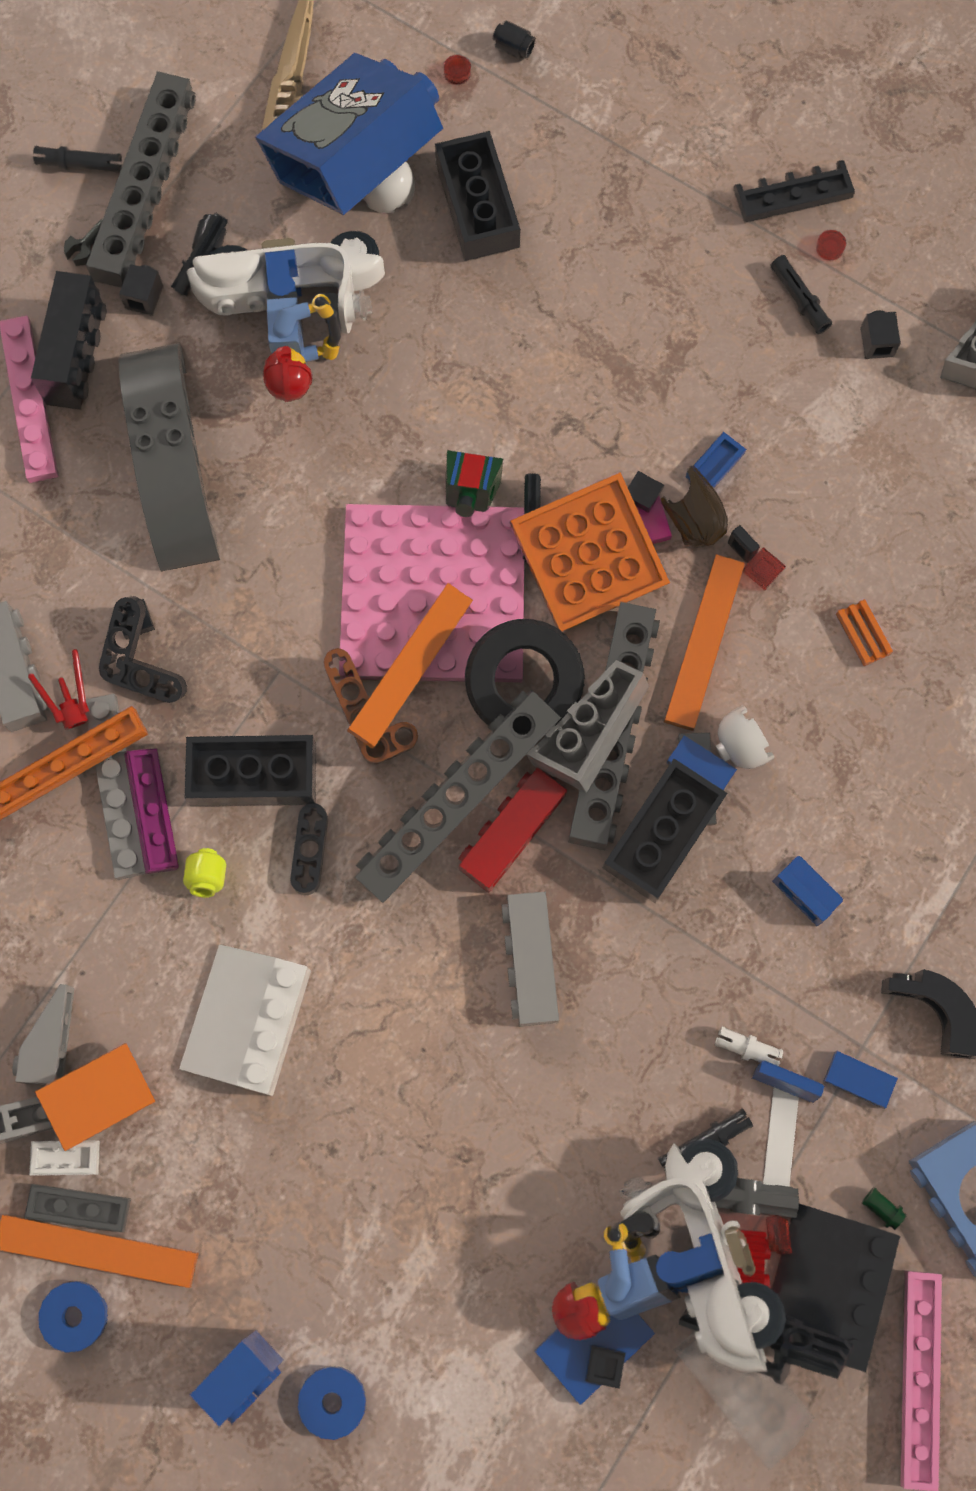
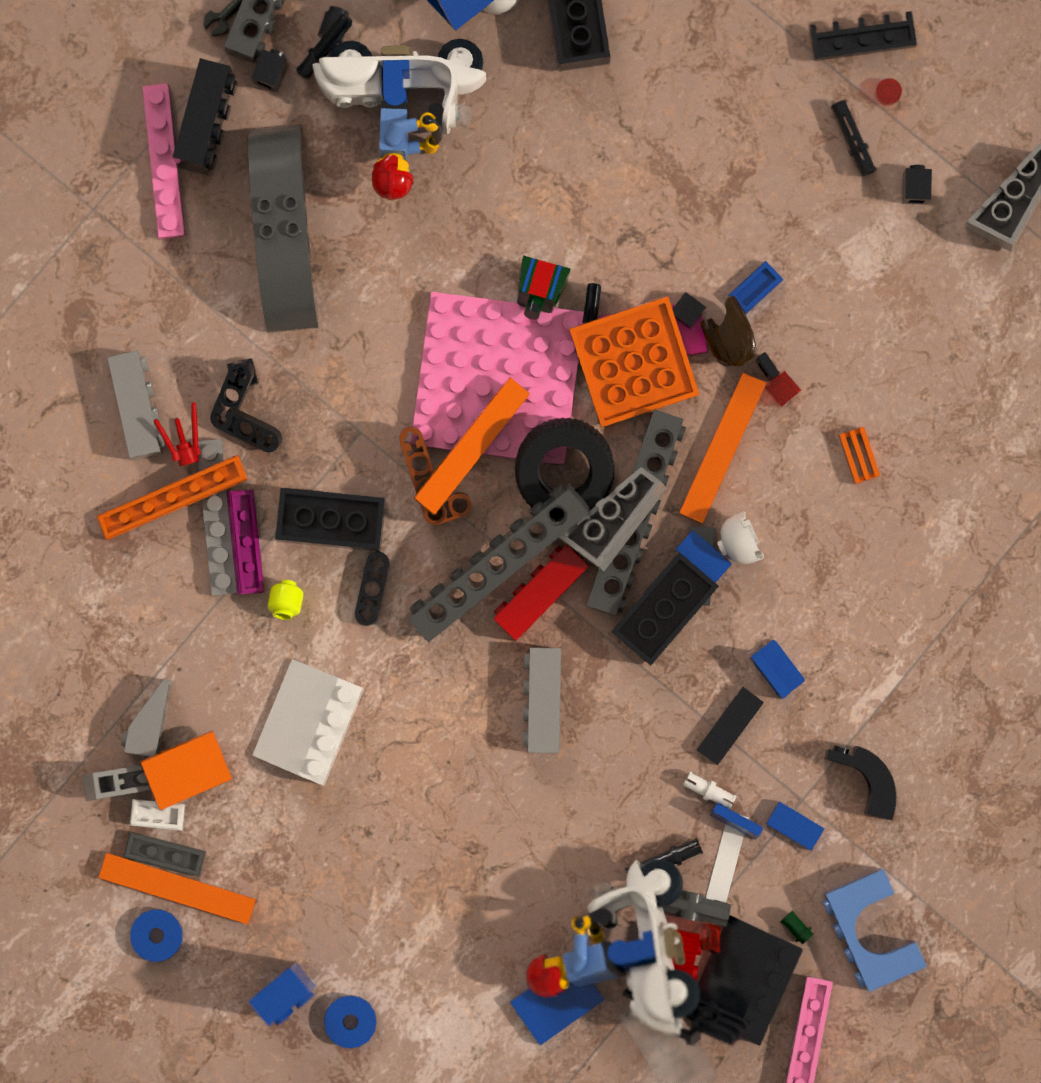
camera: 10 degrees right, 10 degrees up
(605, 1366) = (562, 1019): black tile -> none
(761, 965) = (730, 726): none -> black tile

